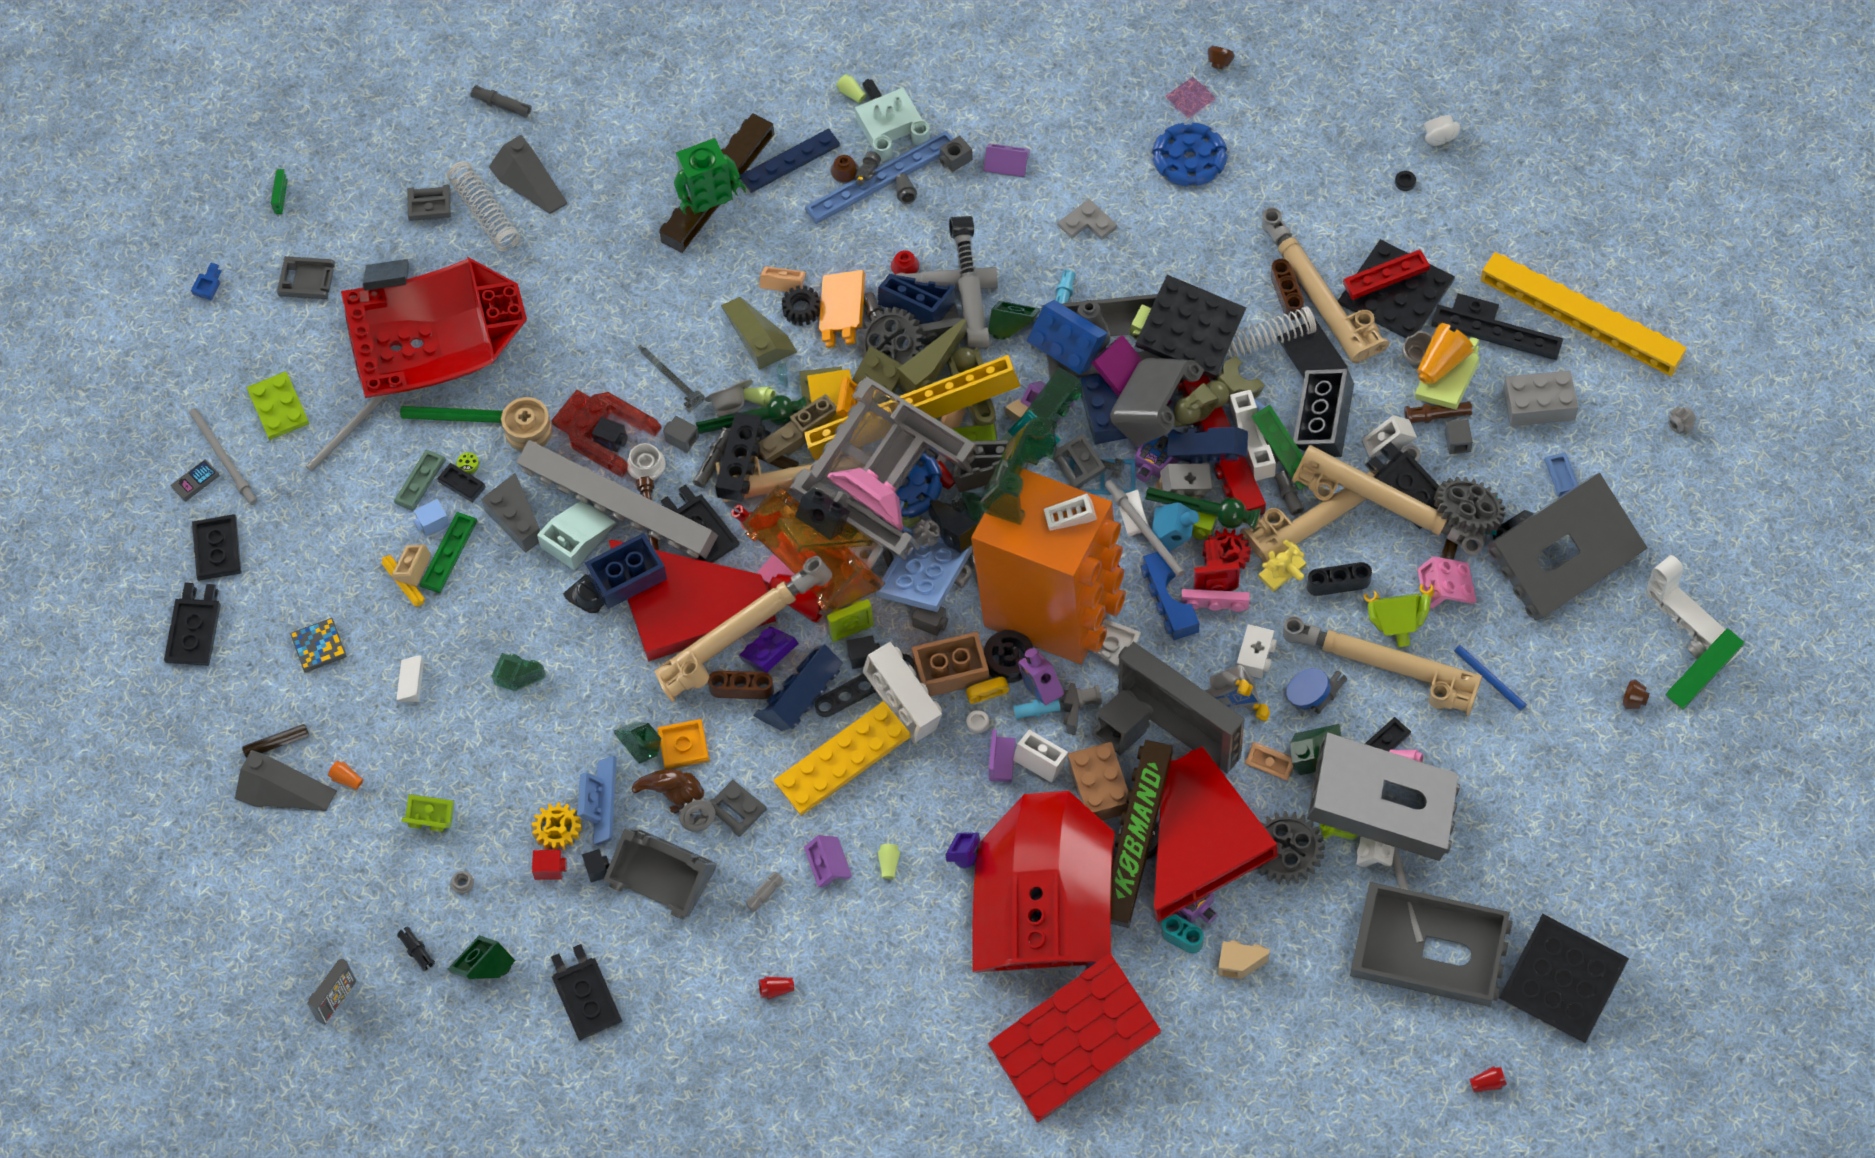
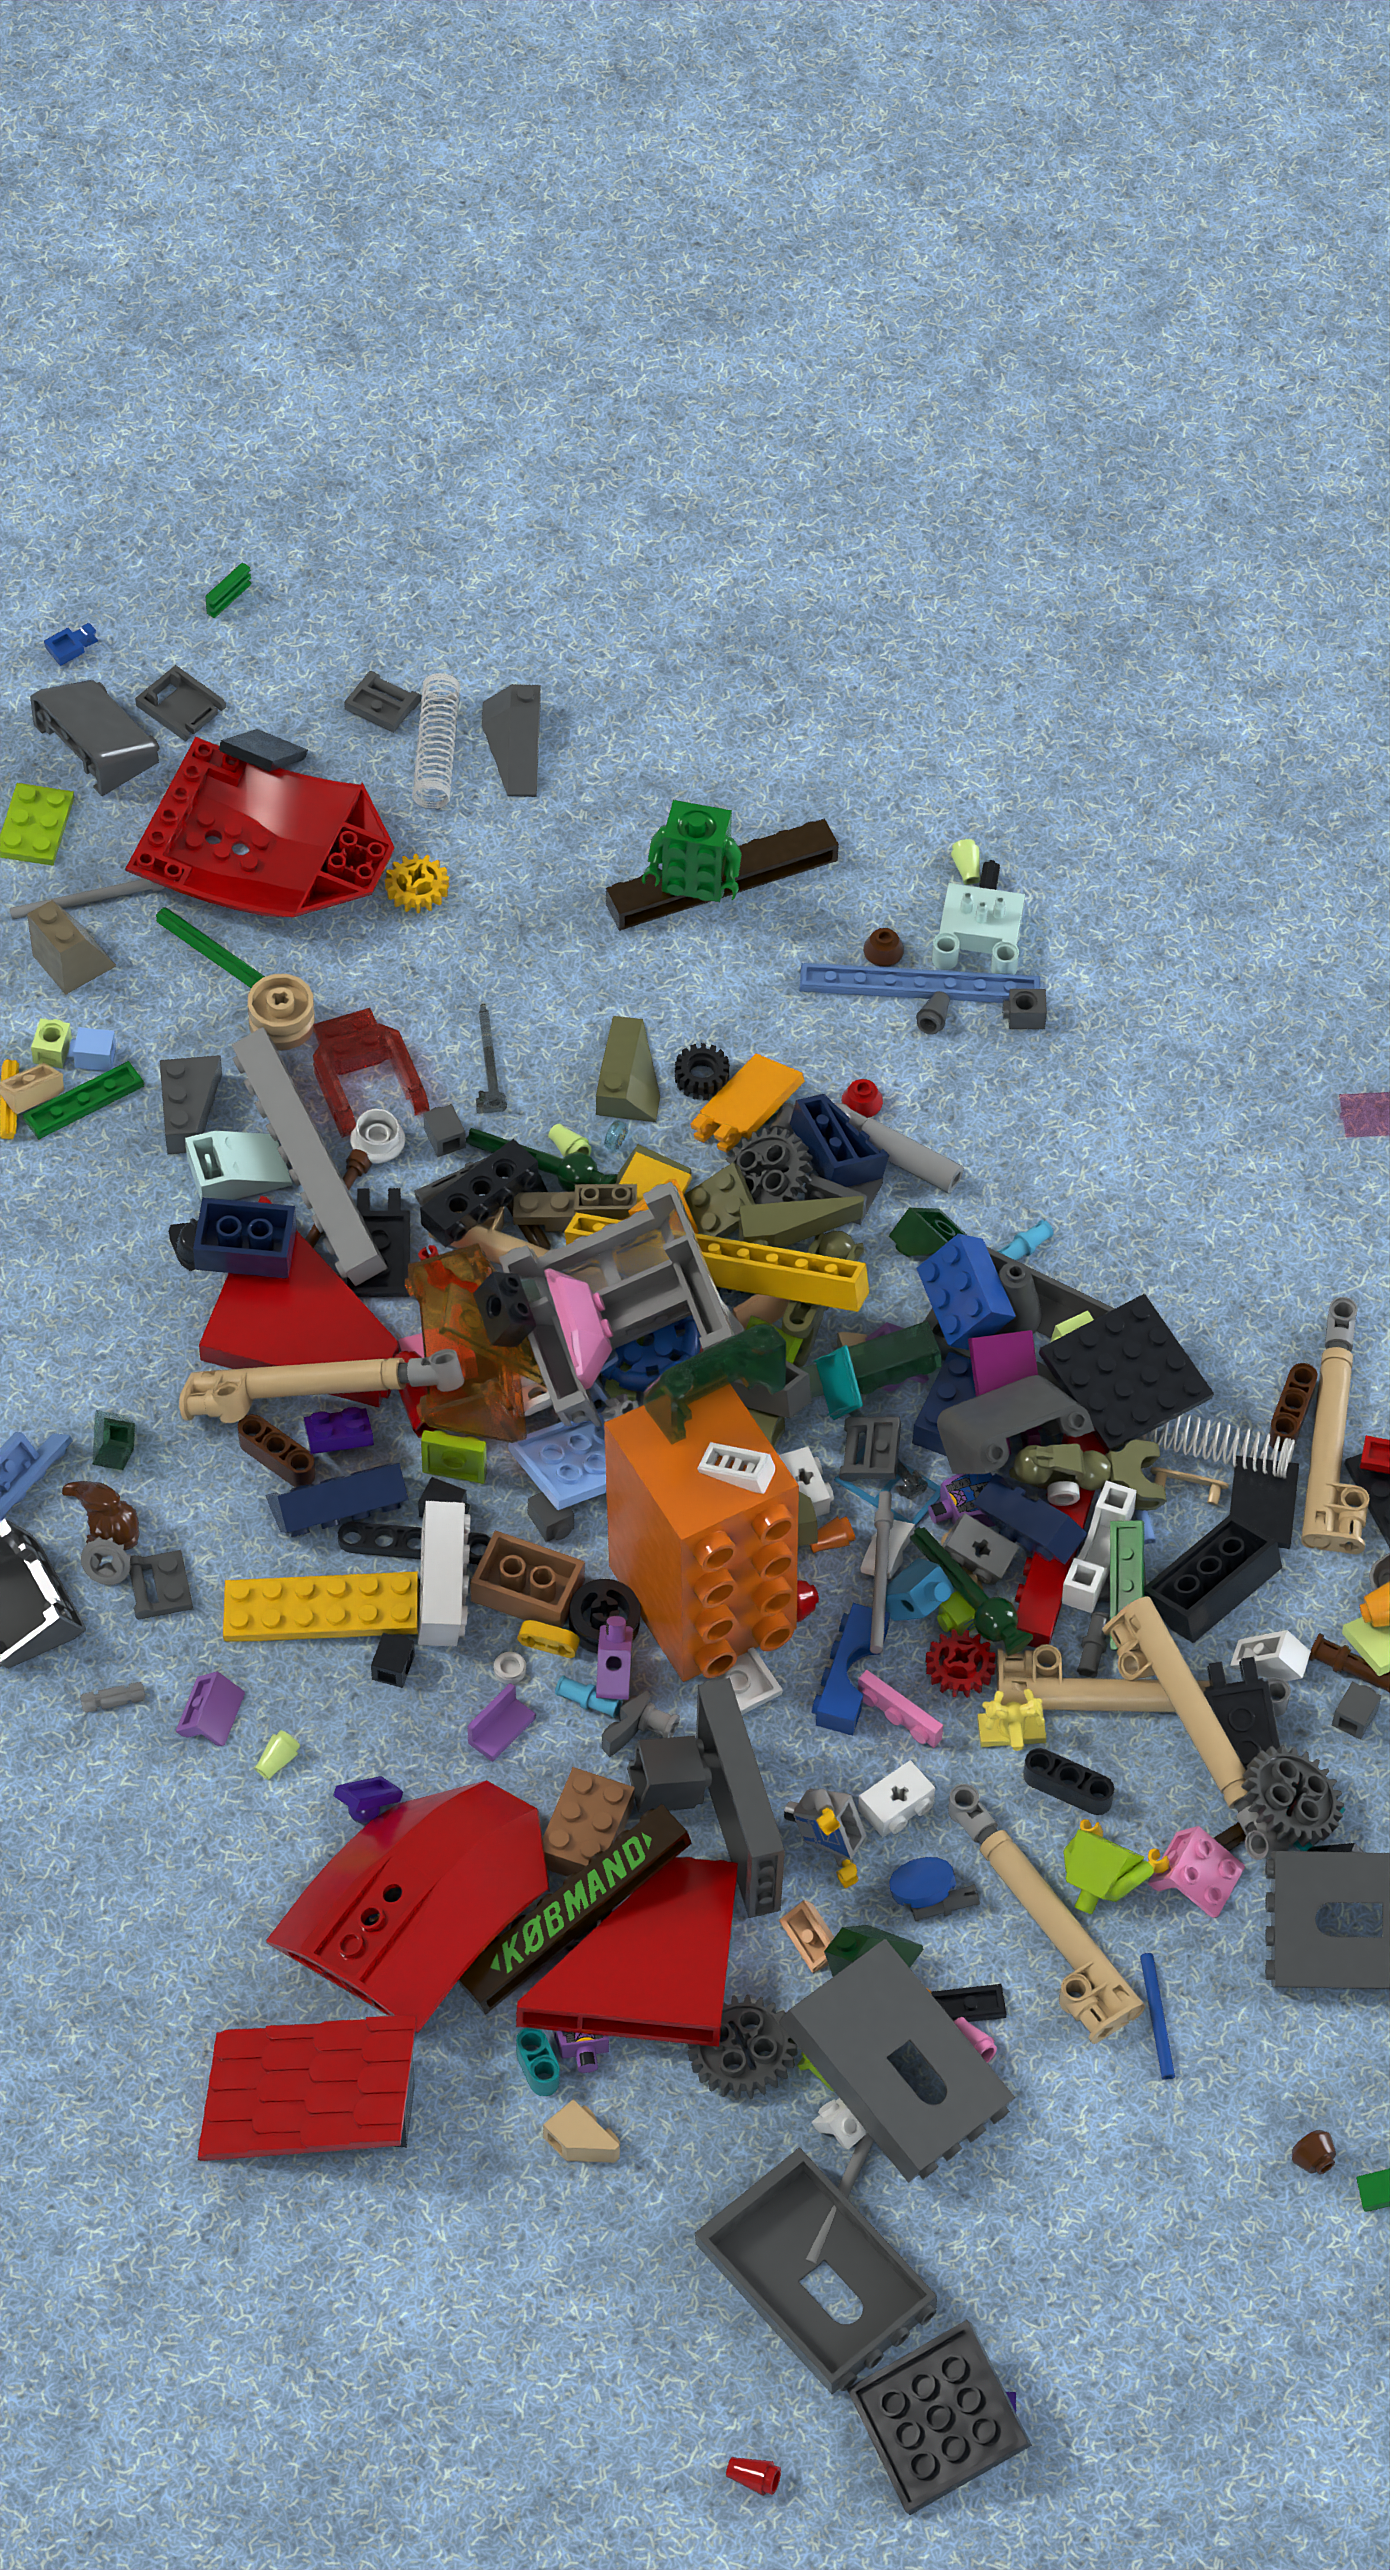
camera: 30 degrees right, 5 degrees down
(271, 325) = (96, 731): none -> dark grey windscreen
(364, 469) = (65, 948): none -> dark tan slope
(406, 536) = (51, 1052): none -> yellowish green brick
(419, 480) = (118, 1001): sand green tile -> none
(461, 482) = (160, 1032): black plate -> none
(468, 462) = (185, 1015): lime tile -> none
(506, 103) = (550, 629): dark grey pin -> none
(516, 673) = (42, 1277): clear green slope -> none
(552, 294) = (417, 883): none -> yellow gear
(610, 434) = (364, 1080): black brick -> none
(683, 744) = (161, 1476): light orange tile -> none
(730, 399) = (530, 1125): light grey piece -> none
(775, 986) = (35, 1808): red cone -> none
(781, 279) = (706, 1027): light nougat slope -> none
(789, 160) = (829, 900): dark blue plate -> none
(866, 172) = (919, 958): dark grey piece -> none
(910, 761) = (393, 1659): none -> black brick
(977, 334) = (909, 1164): piece -> none
(1006, 159) = (1082, 1051): medium lavender panel -> none
(1040, 756) = (542, 1750): white brick -> none
(1088, 216) = (1125, 1176): light grey plate -> none
(1189, 143) = (1315, 1164): blue plate -> none
(1210, 417) = (1063, 1493): none -> white tile
(1215, 574) = (920, 1678): red piece -> none
(1280, 360) = (1215, 1485): none -> tan piece

